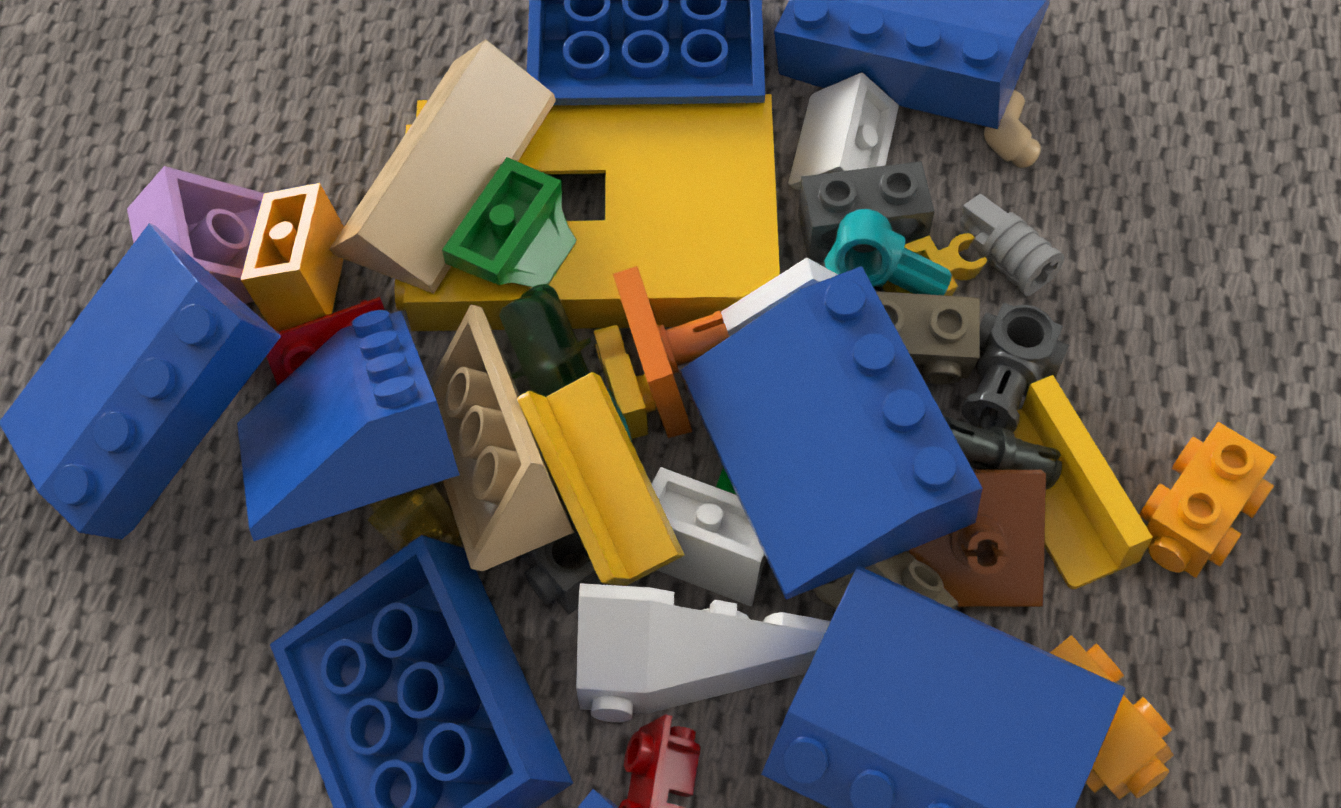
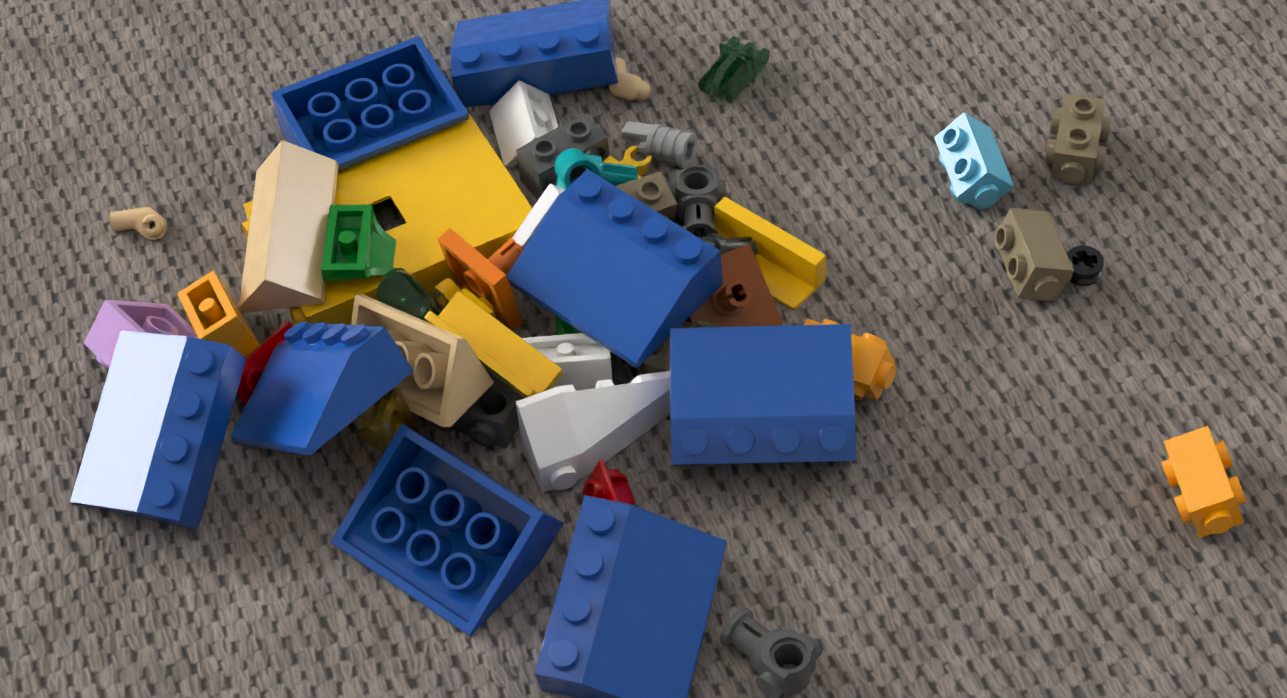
camera: 25 degrees left, 10 degrees down
(302, 62) = (142, 220): none -> tan arm
(1168, 176) = (733, 69): none -> clear green arm
(1197, 513) = (847, 222): light orange brick -> none

